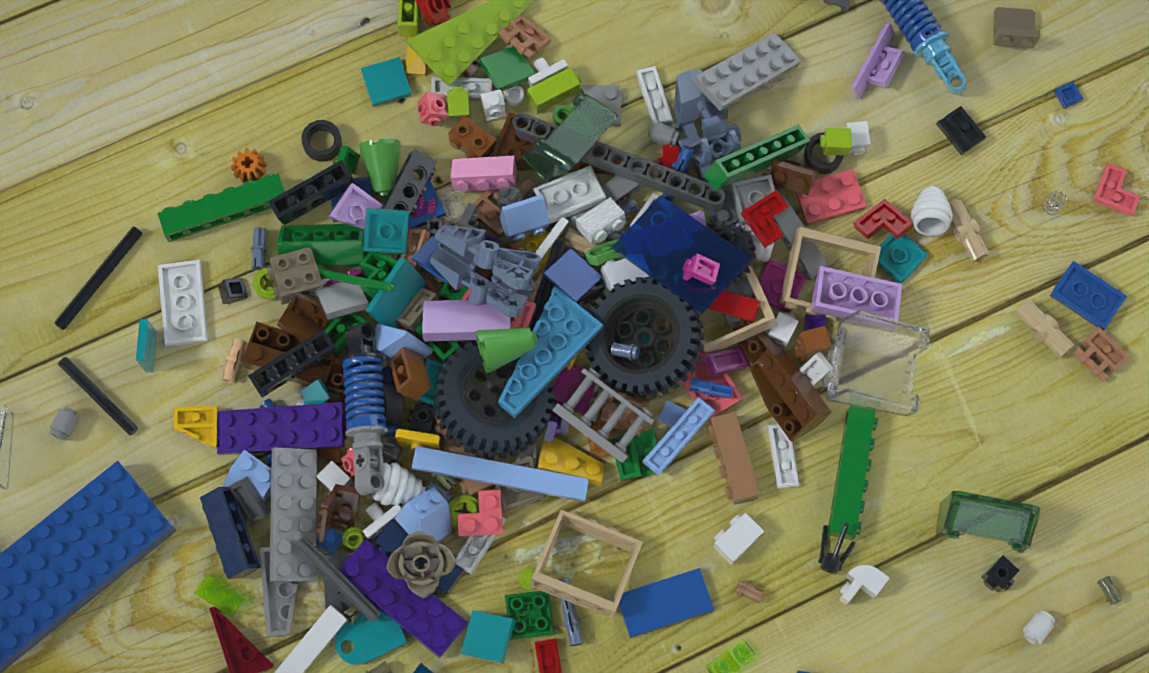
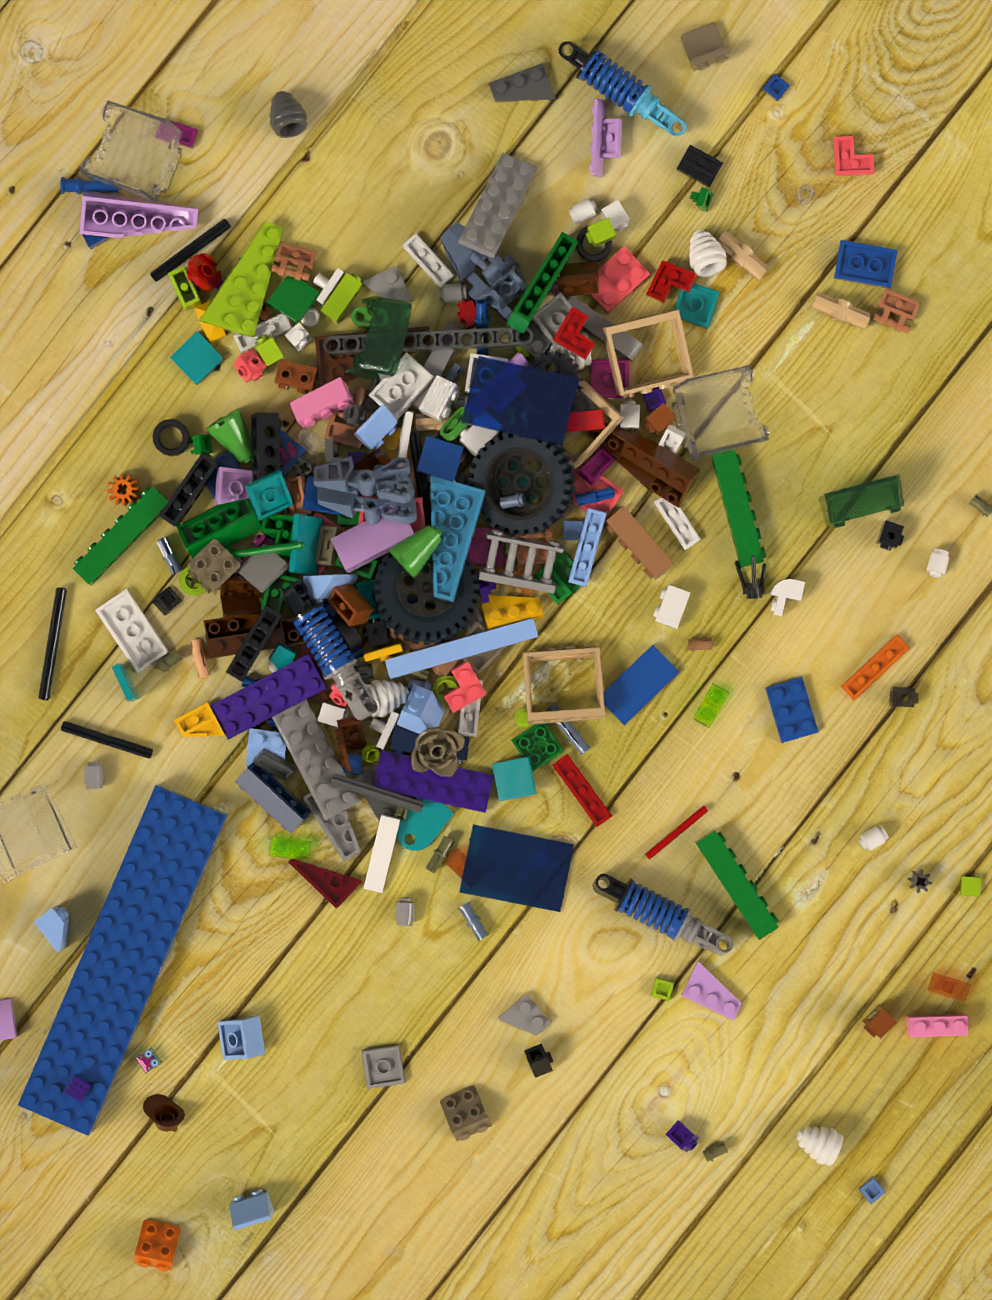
camera: 15 degrees left, 15 degrees up
(202, 348) = (169, 661): none -> olive pin
(701, 269) = (544, 410): dark pink bracket -> none
(827, 118) = (583, 211): none -> white brick
(843, 293) = (677, 362): lavender slope -> none
(950, 160) = (702, 199): none -> green tile

